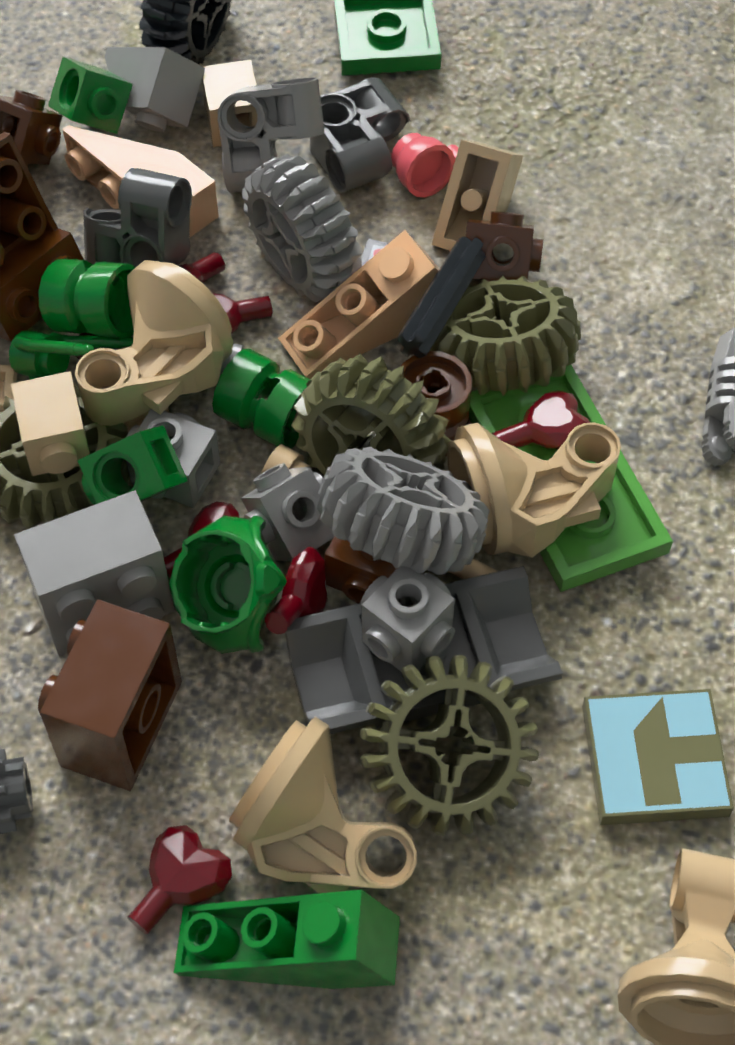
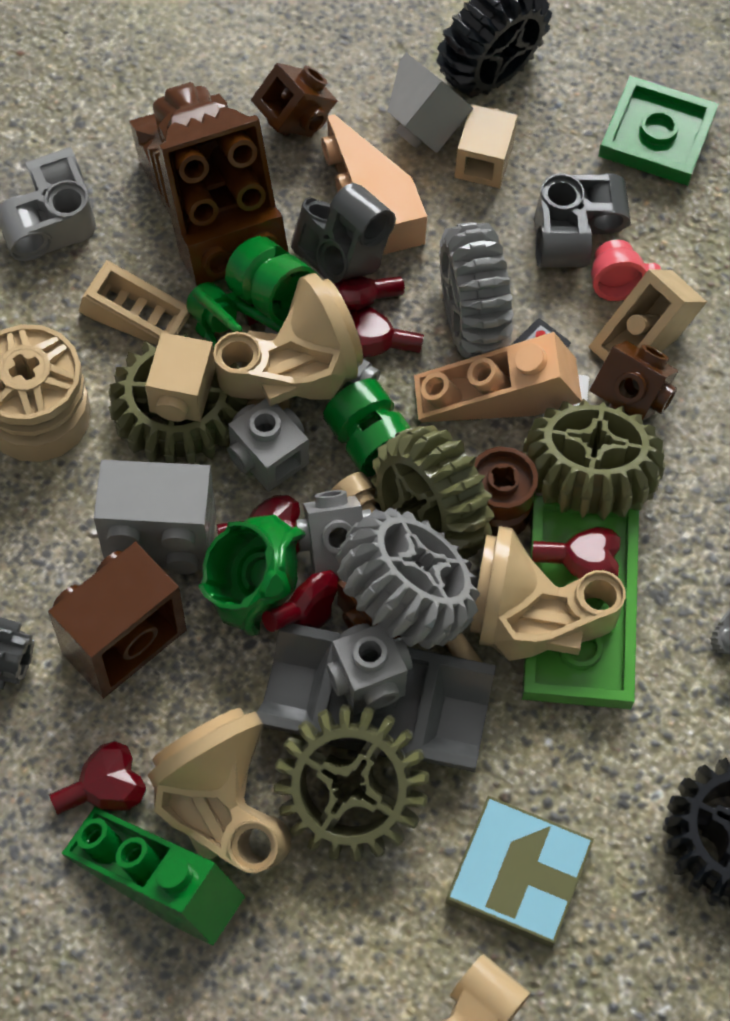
camera: 25 degrees right, 5 degrees up
(90, 95) = (367, 93): green brick -> none
(149, 454) = (239, 440): green brick -> none
(284, 112) = (513, 178): light grey piece -> none
(441, 297) = (552, 405): black axle -> none

